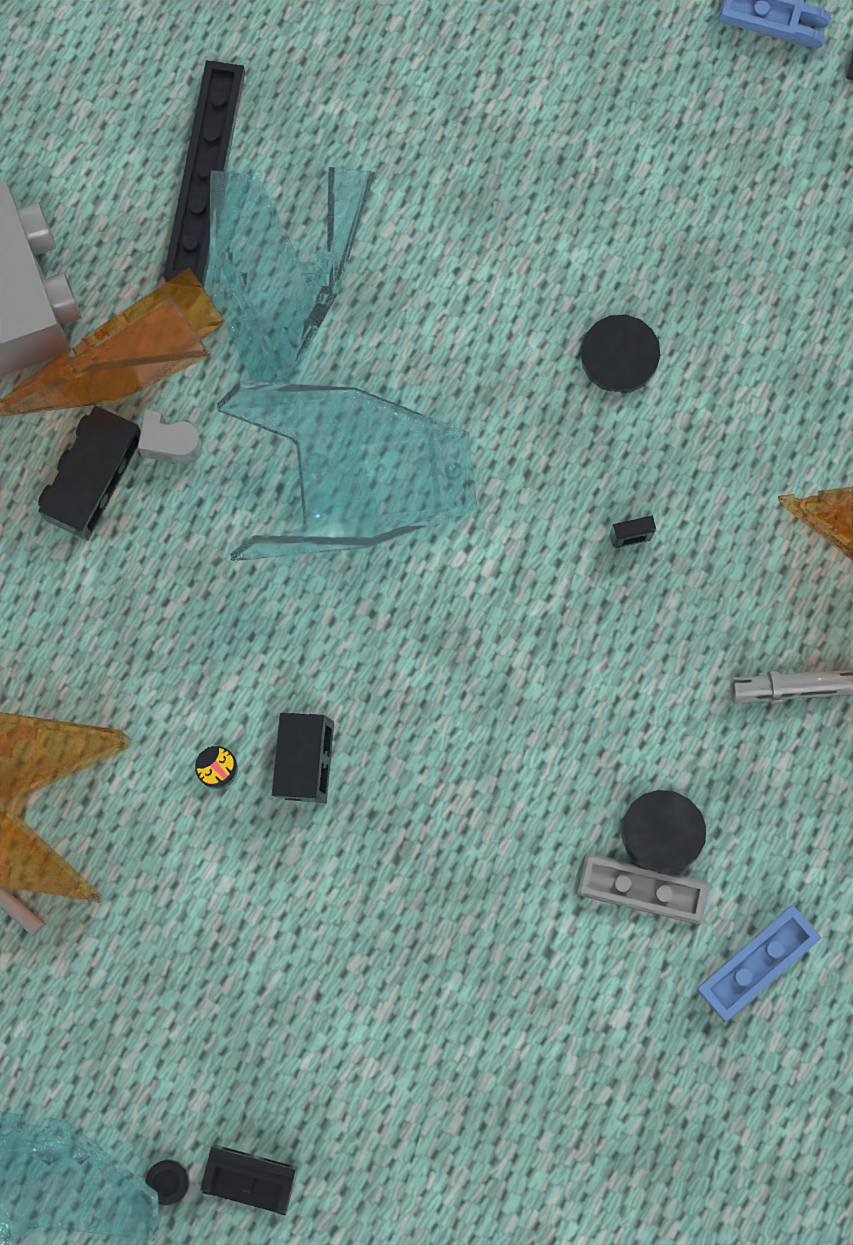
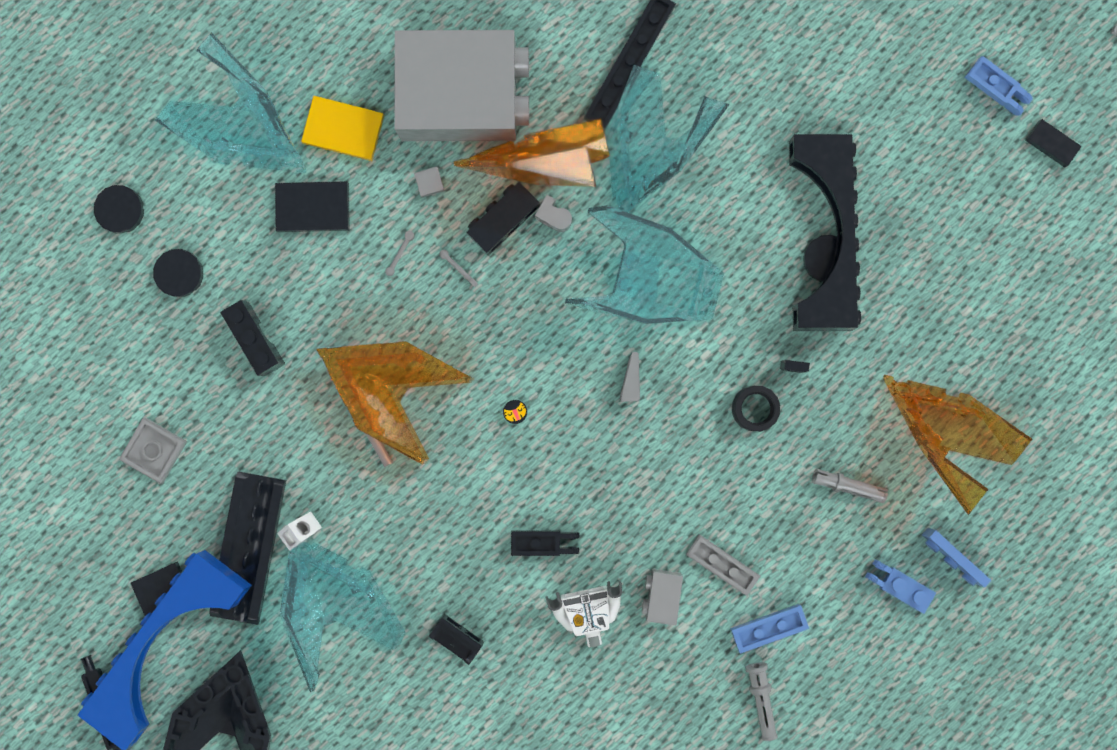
camera: 20 degrees right, 10 degrees up
(17, 562) = (444, 254): none -> light grey hinge
(169, 1180) = (412, 623): black tile -> none
(303, 757) = (564, 425): black hinge -> none
(334, 963) = (541, 542): none -> black hinge
(387, 658) = (631, 383): none -> light grey slope
(450, 1046) = (587, 611): none -> torso
(565, 213) = (829, 164): none -> black arch
(565, 976) = (663, 596): none -> light grey brick
(611, 591) = (774, 408): none -> black tyre
(663, 832) = (746, 539): black tile -> none
(777, 1071) = (762, 688): none -> light grey pin

